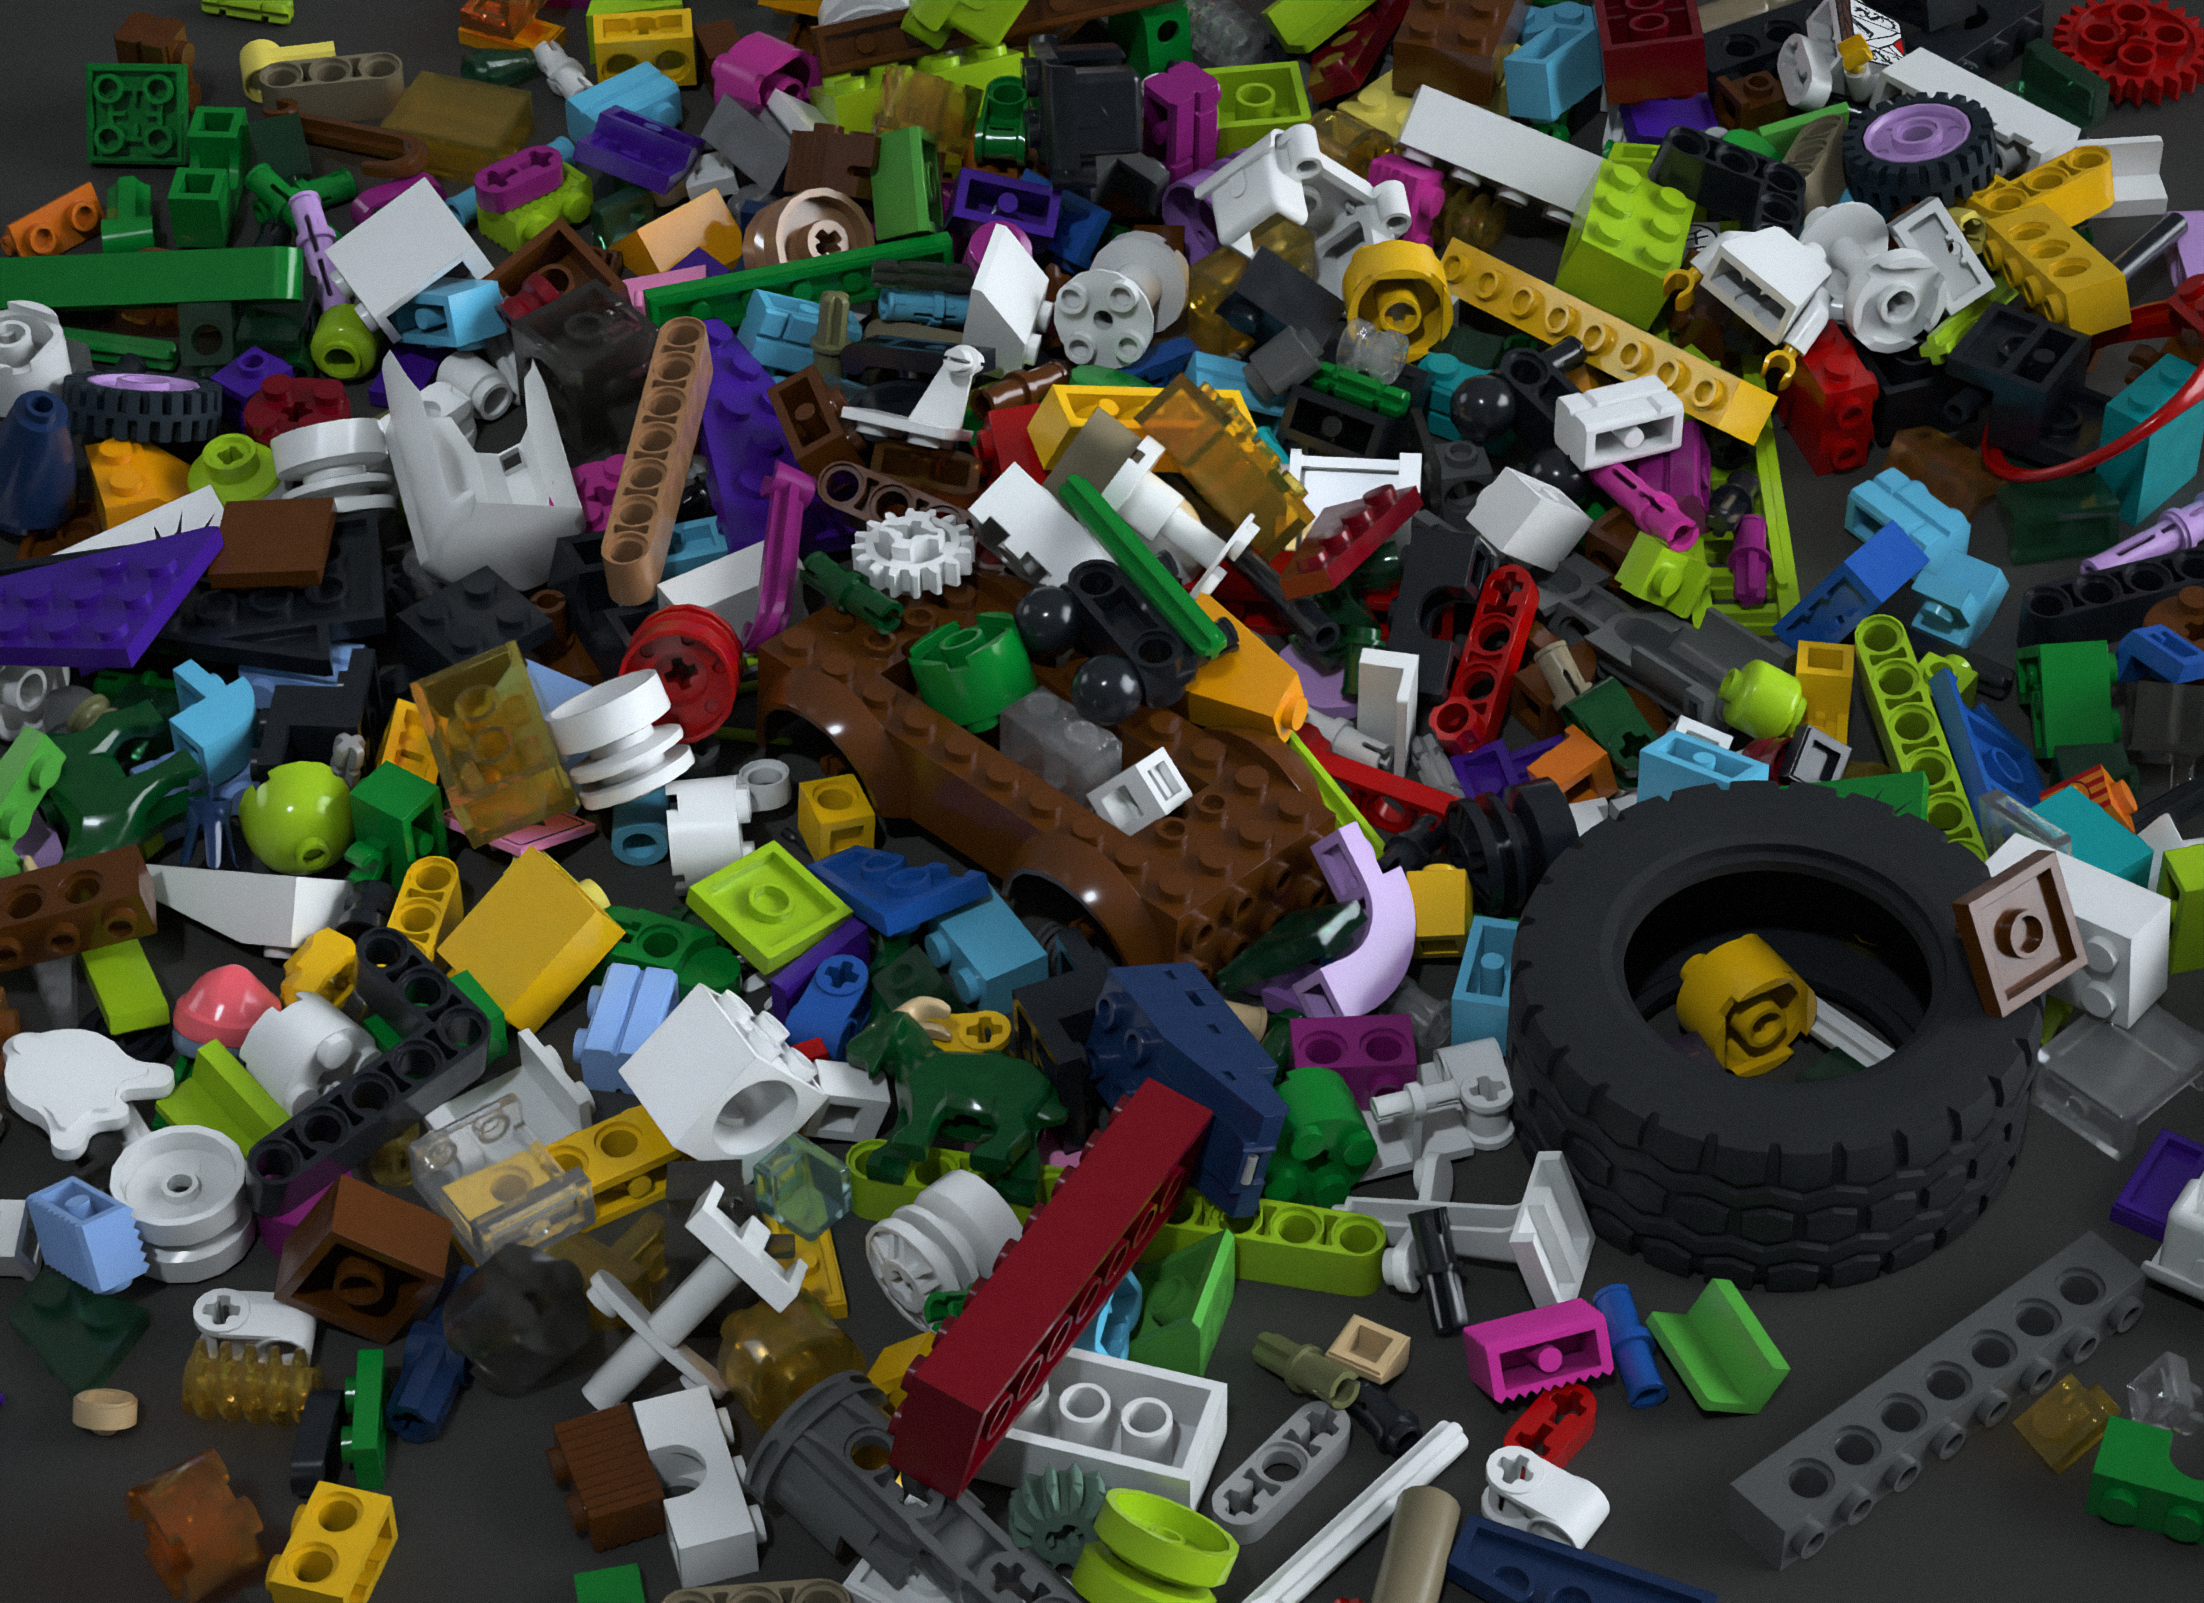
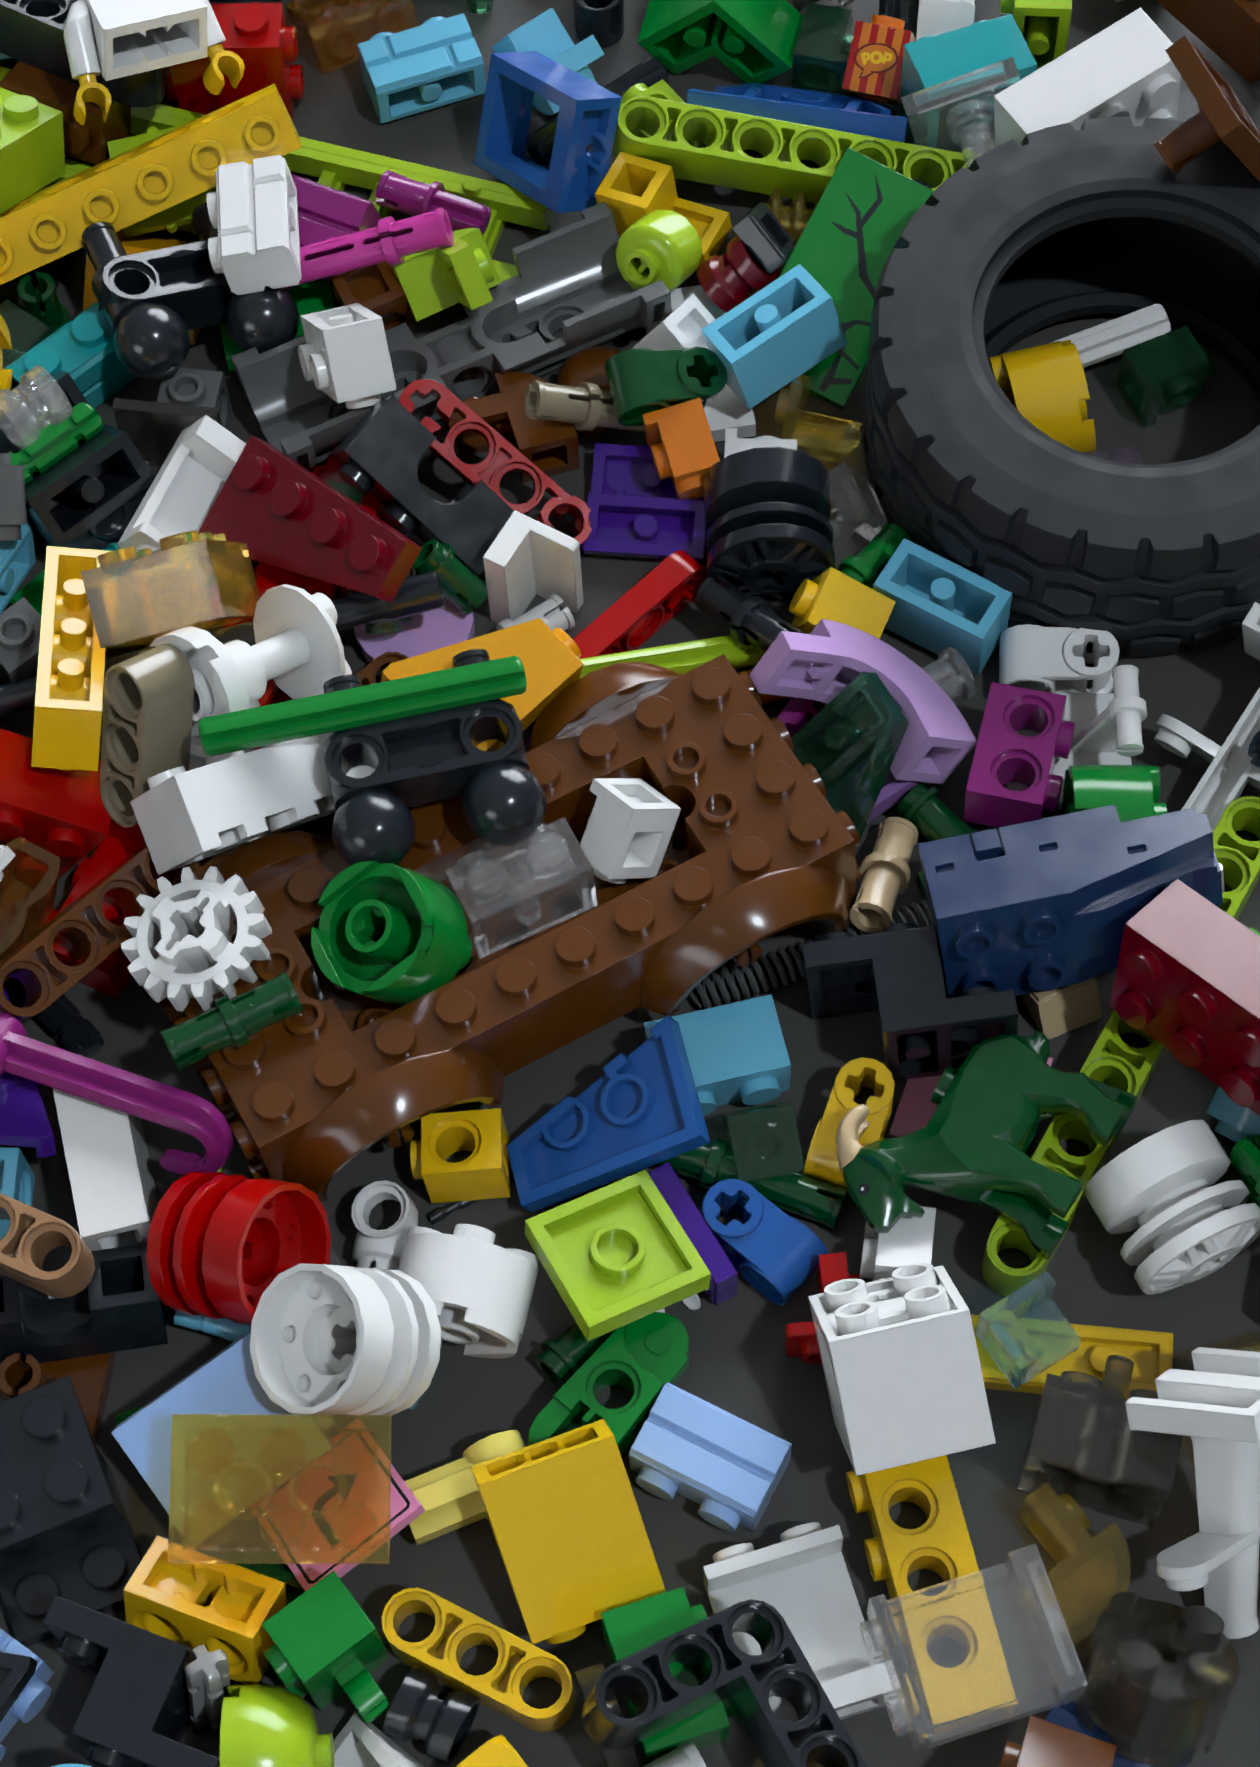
camera: 70 degrees left, 20 degrees up
(1434, 765) = (616, 568): light grey axle -> none
(1732, 501) = (360, 182): black axle -> none

